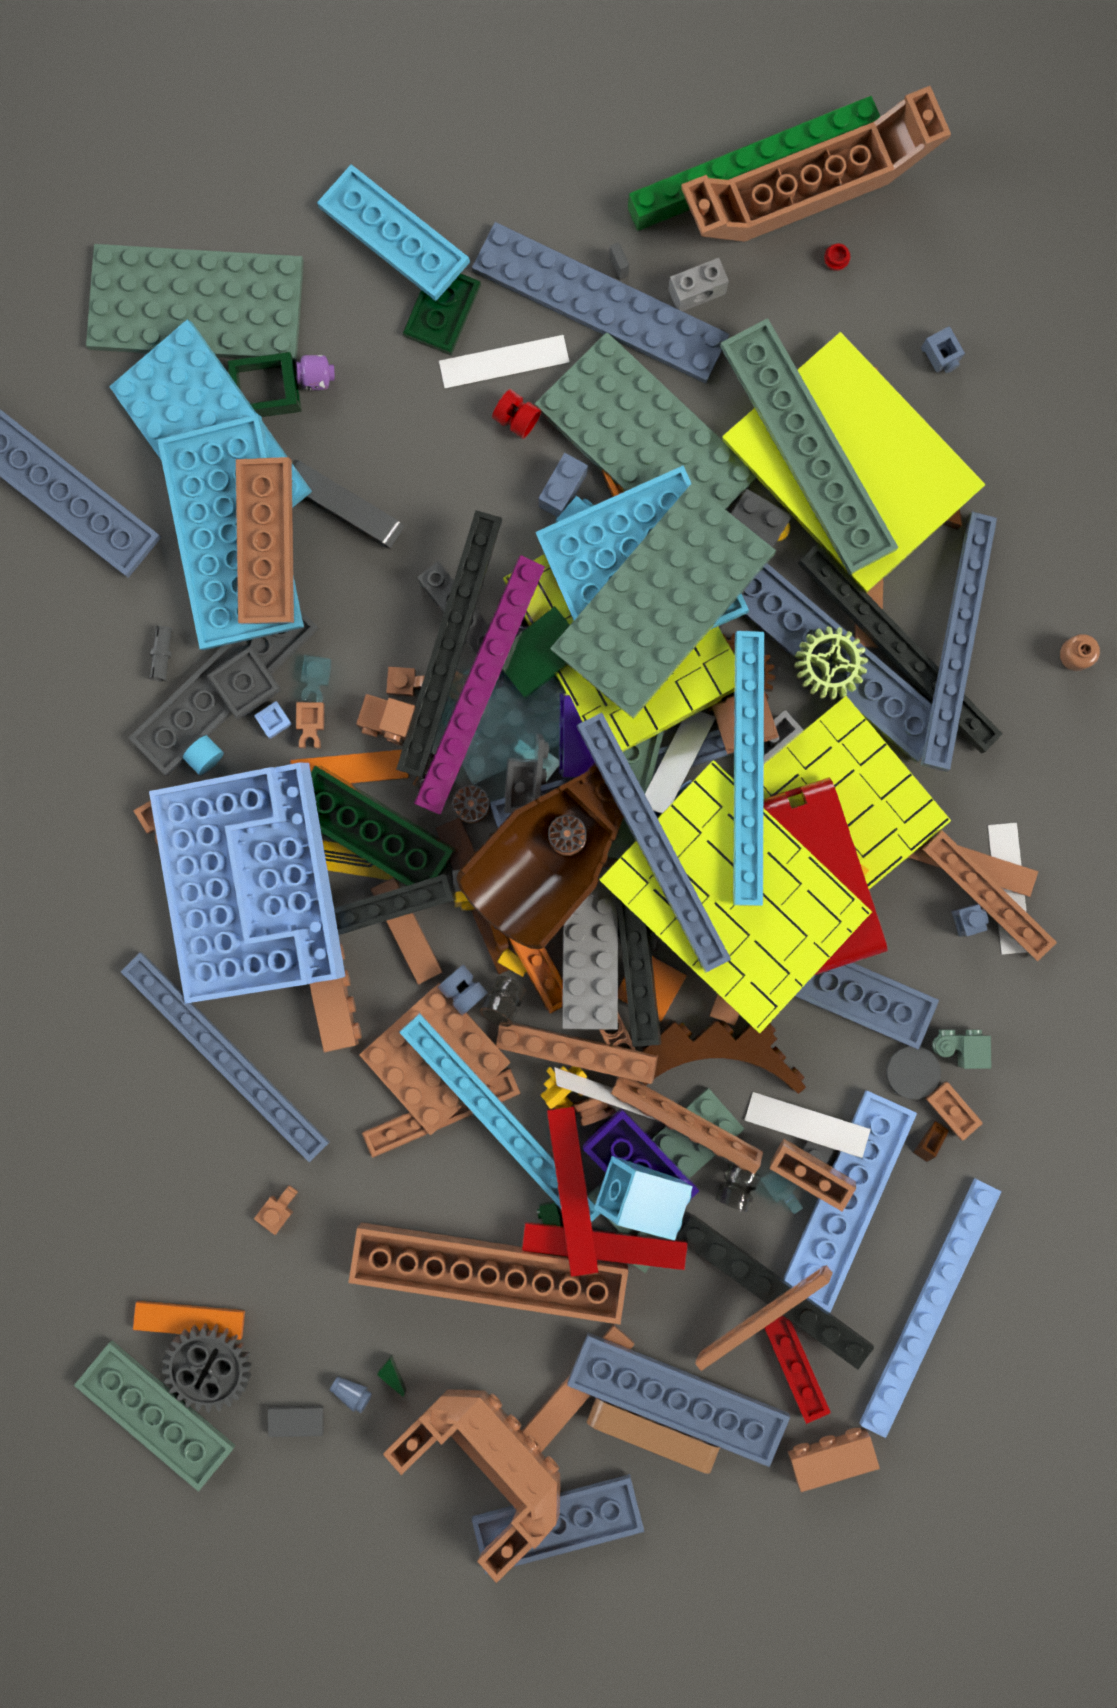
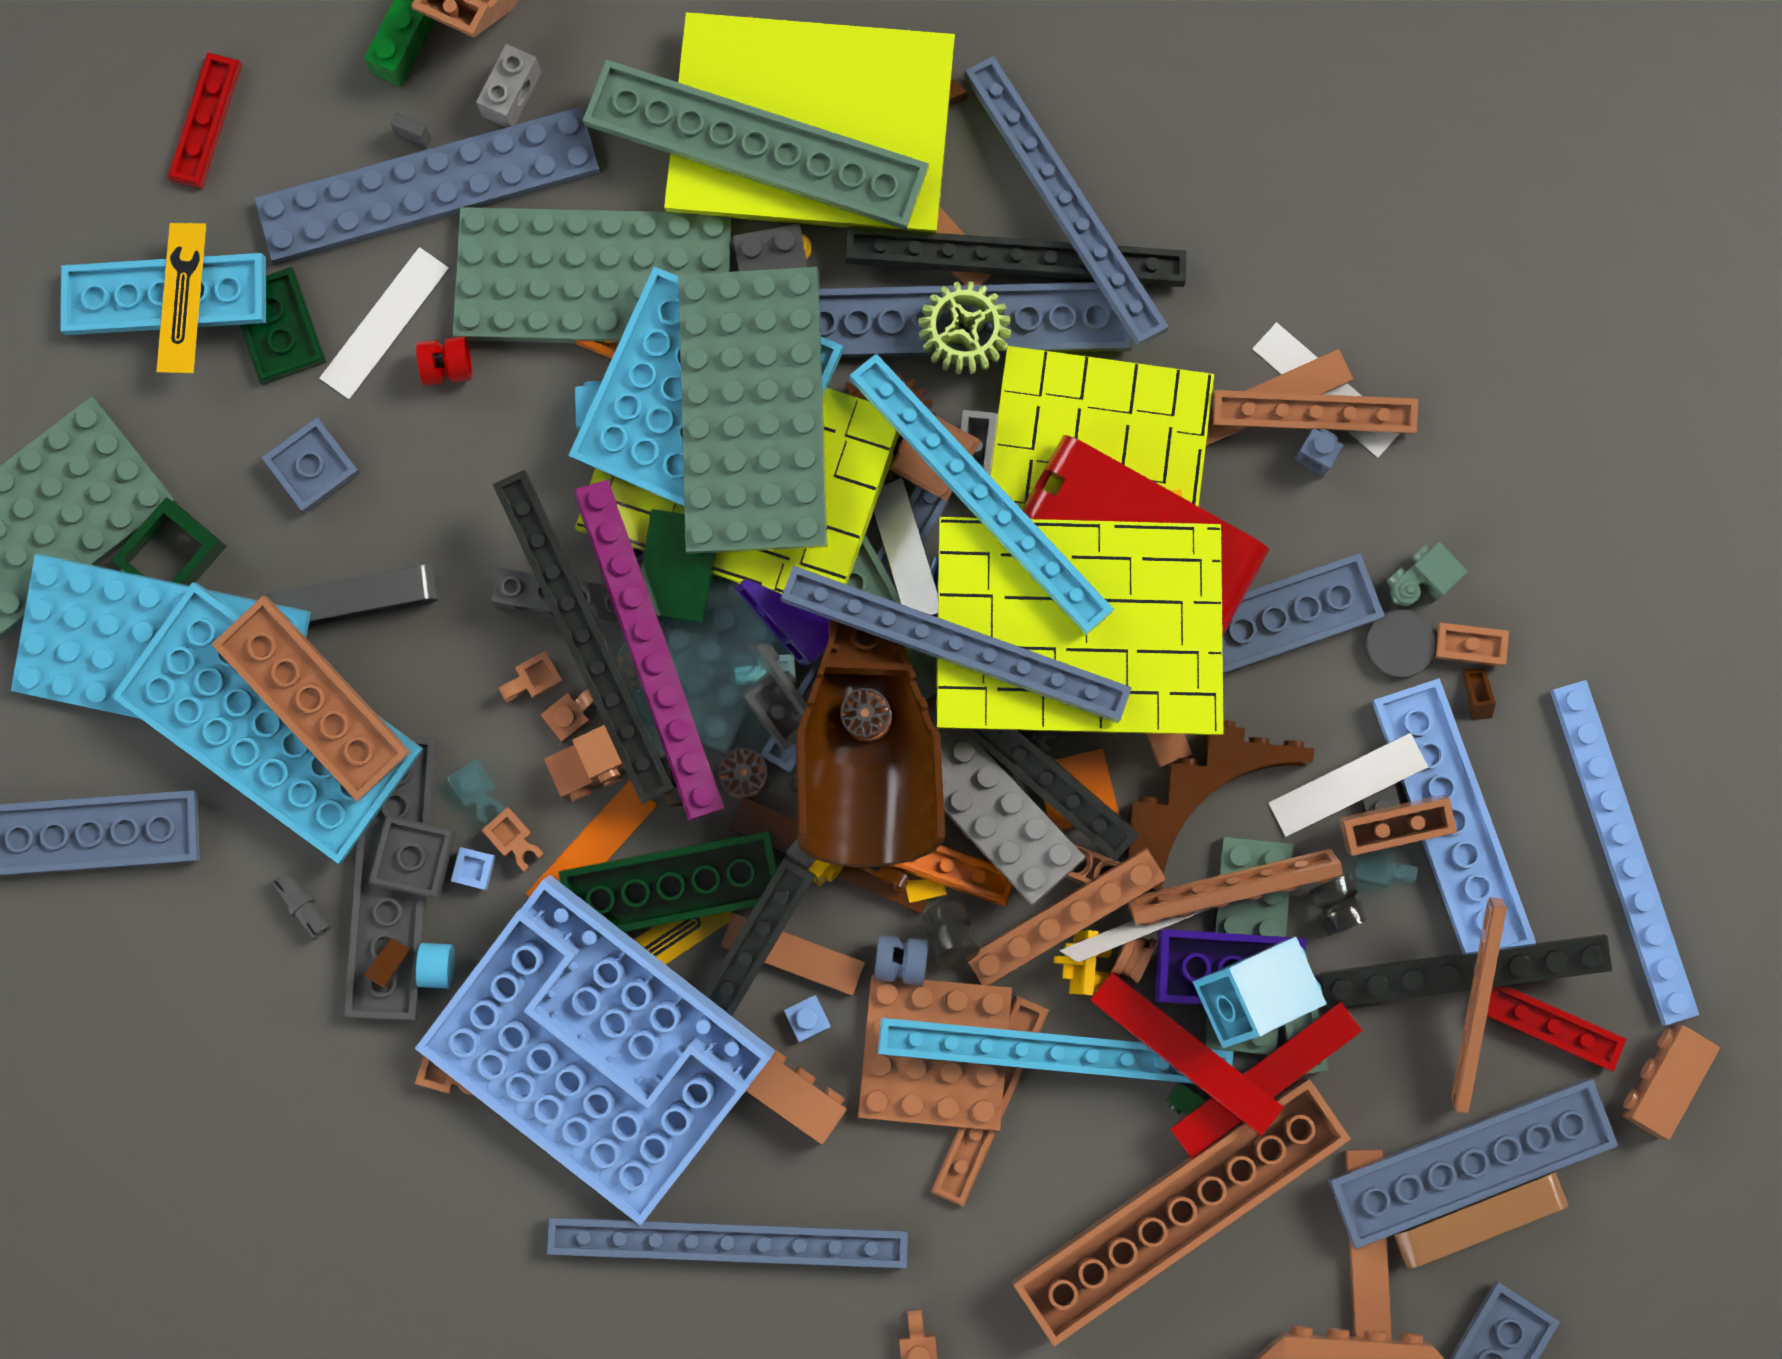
camera: 45 degrees left, 5 degrees down
(177, 730) = (387, 963): none -> reddish brown piece
(314, 372) = (207, 496): medium lavender head -> none
(382, 973) = (807, 1018): none -> light blue plate
(388, 407) = (310, 465): none -> sand blue plate
(400, 243) = (181, 297): none -> yellow sticker
(405, 642) = (535, 676): none -> nougat plate
(507, 151) = (204, 120): none -> red tile
(563, 485) = (552, 389): sand blue brick -> none
(1079, 652) = (1187, 111): nougat head -> none

